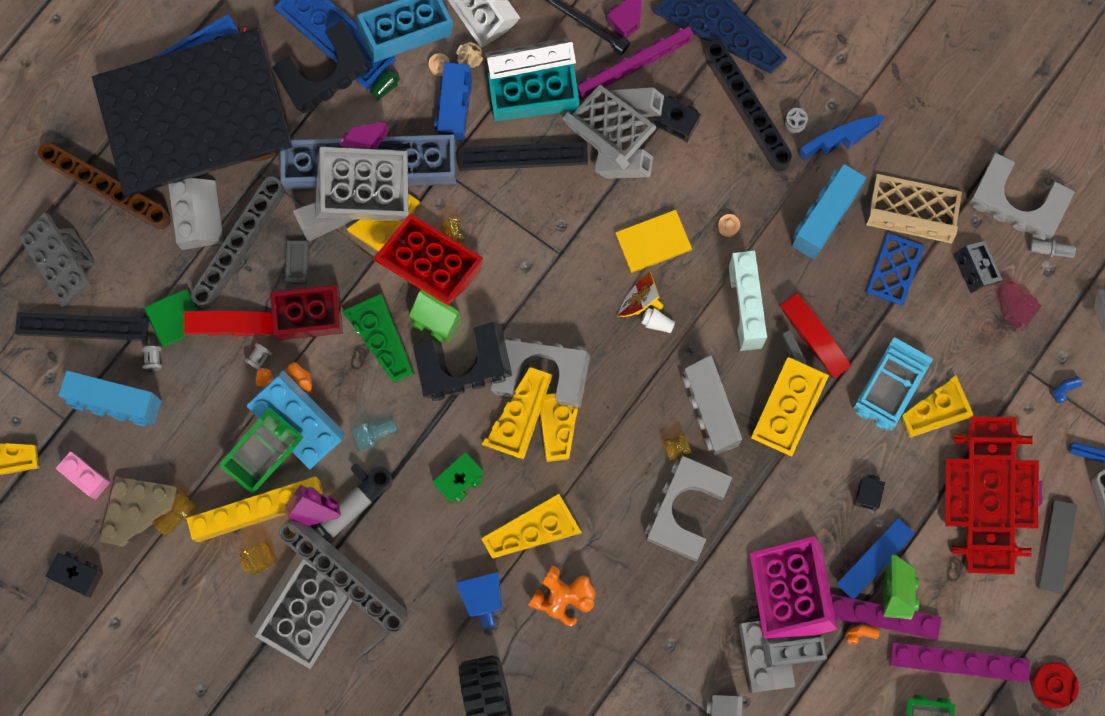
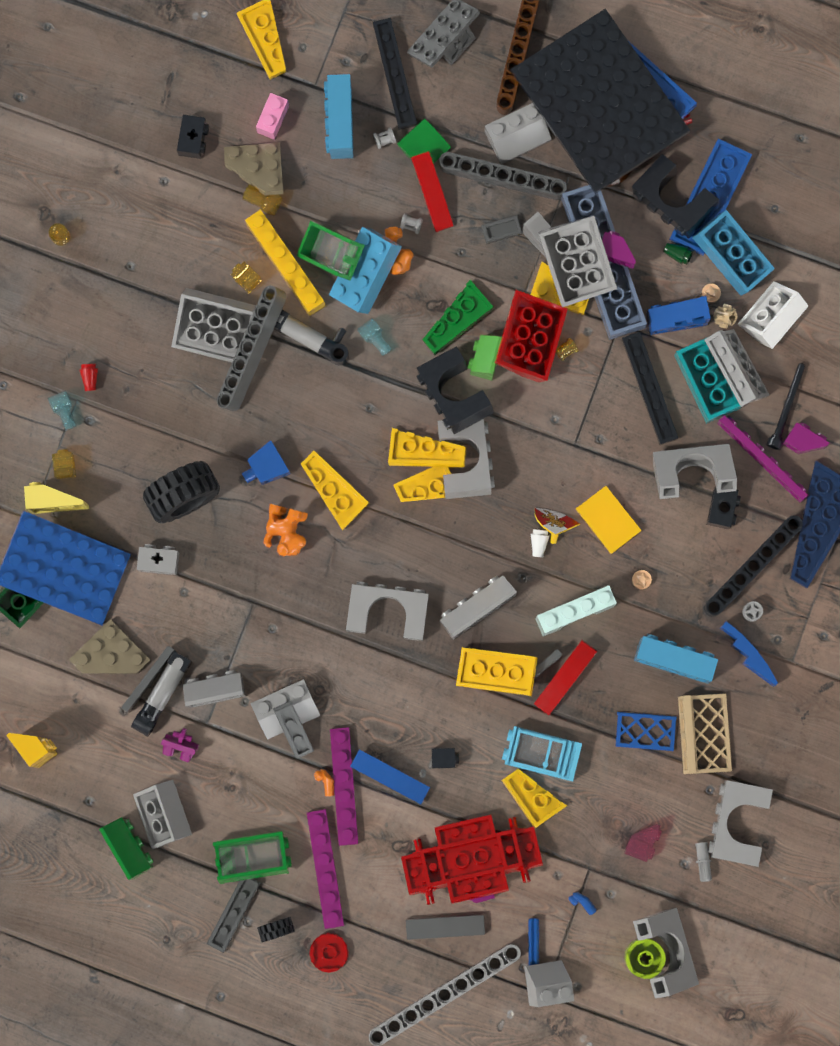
camera: 75 degrees right, 5 degrees up
(306, 312) = (458, 251): dark red brick -> none
(312, 507) = (296, 305): magenta slope -> none
(461, 467) = (352, 408): green brick -> none
(601, 142) = (682, 441): light grey fence -> none
(676, 447) = (435, 587): clear yellow wheel -> none
(793, 589) = (343, 714): dark pink slope -> none
(900, 589) = (369, 802): bright green slope -> none
(977, 266) = (668, 801): black bracket -> none

